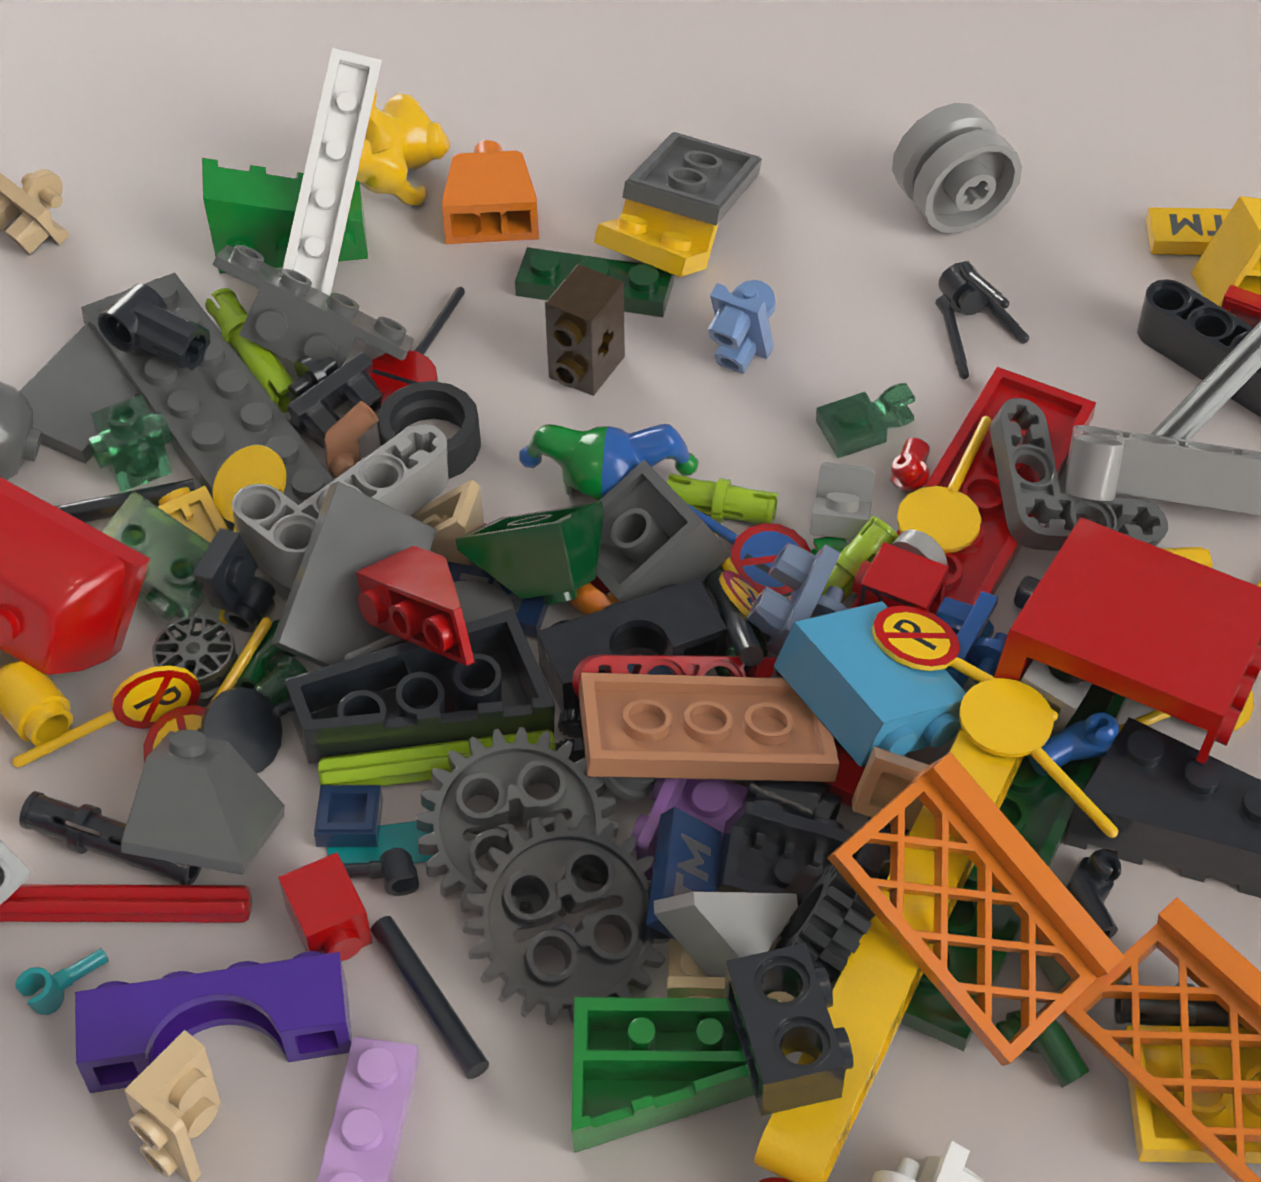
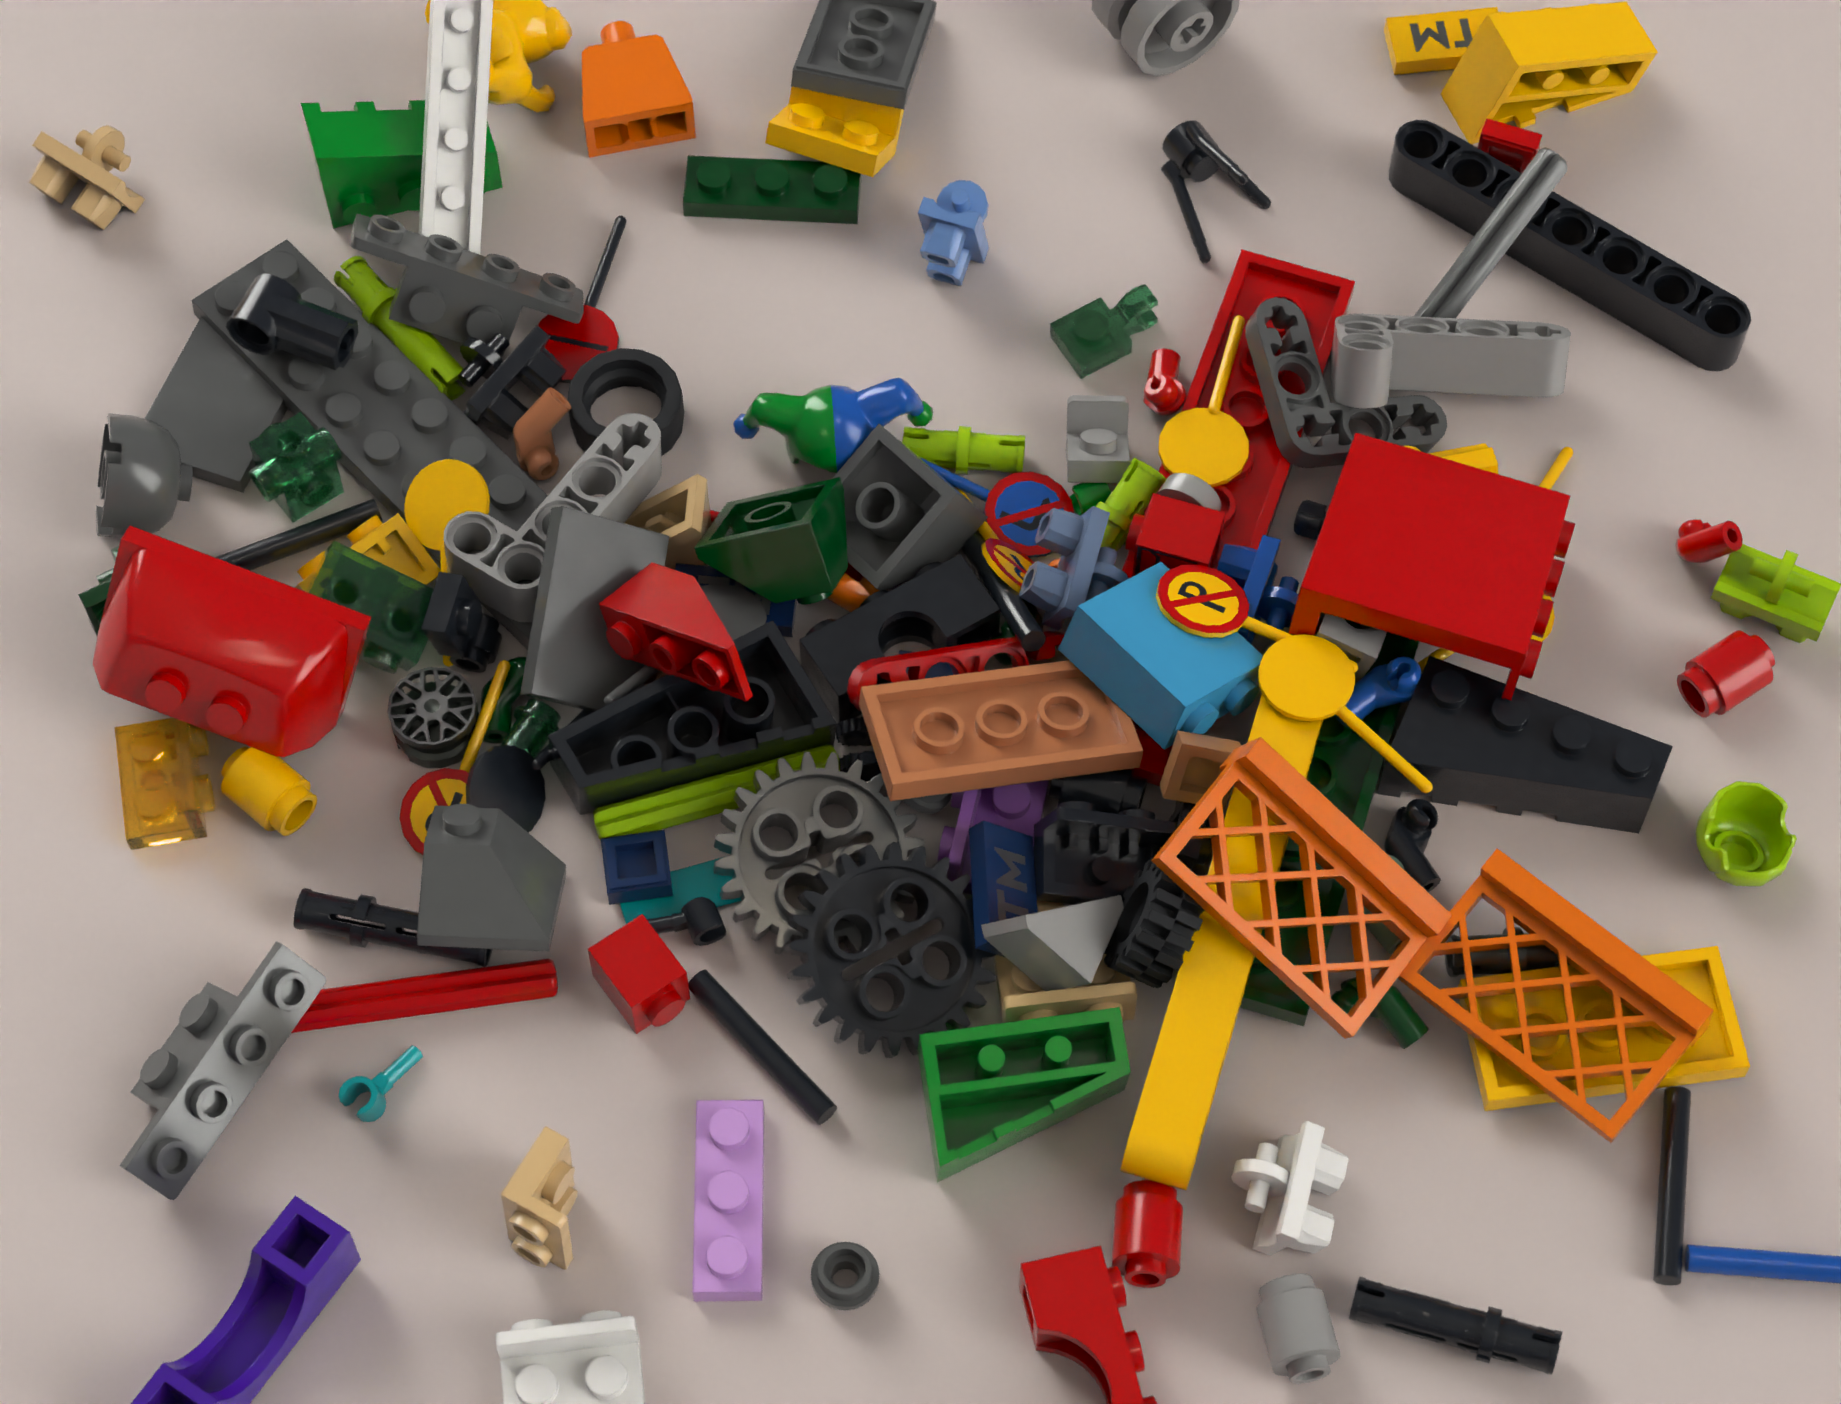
camera: 10 degrees left, 10 degrees up
(135, 703) = (384, 779): yellow piece -> none
(291, 1001) = (474, 1121): dark purple arch -> none
(585, 329) = (780, 264): dark brown brick -> none
(774, 1029) = (1120, 1041): black brick -> none

